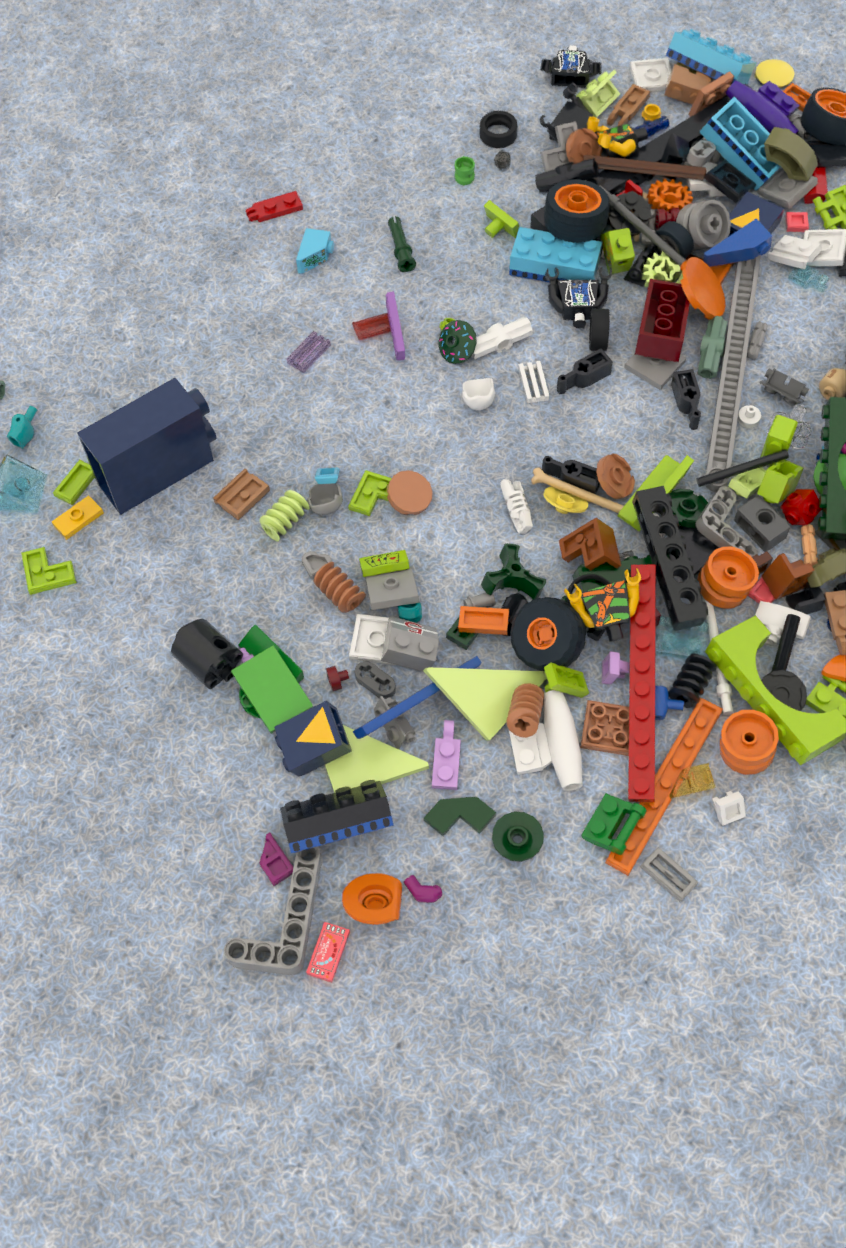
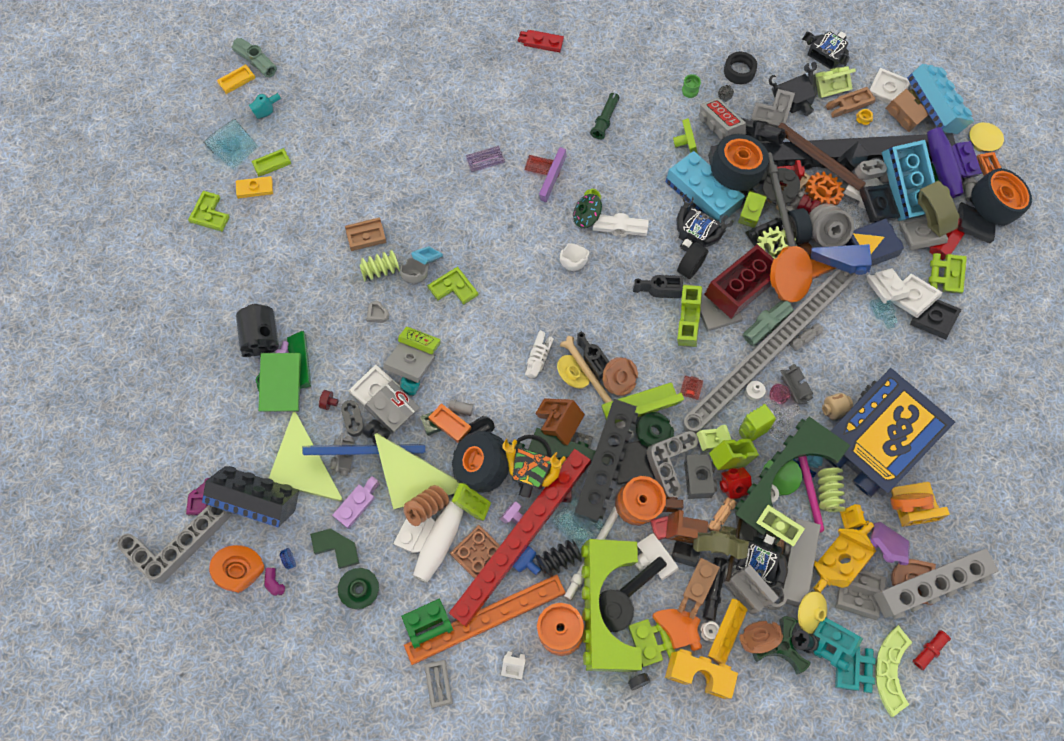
camera: 30 degrees right, 5 degrees up
(149, 444) = (320, 164): dark blue brick -> none
(312, 739) = (278, 433): dark blue brick -> none
(314, 249) = (542, 86): medium azure slope -> none
(328, 952) = (185, 582): coral tile -> none
(338, 587) = (375, 339): nougat piece -> none
(409, 492) = (472, 300): nougat tile -> none
(418, 680) = (375, 427): none -> black wheel
(420, 856) = (287, 558): none -> clear blue tile
(513, 575) = (495, 403): dark green piece -> none
(522, 184) = (721, 118): none -> light grey brick
(529, 367) = (626, 259): white tile -> none
(582, 143) = (789, 113): nougat tile -> none
(617, 141) = (816, 125): torso -> none
(643, 392) = (690, 316): none -> lime arch
(654, 125) = (853, 127): clear blue pin -> none
(687, 395) = (723, 346): black piece -> none
(688, 446) = (691, 387): none -> clear red tile
(692, 781) = (504, 630): clear yellow tile -> none
(711, 93) = (918, 126): nougat tile -> none
(741, 468) = (713, 427): black bar -> none
(774, 403) = (779, 393): none -> clear pink tile
(796, 221) = (910, 263): coral tile -> none

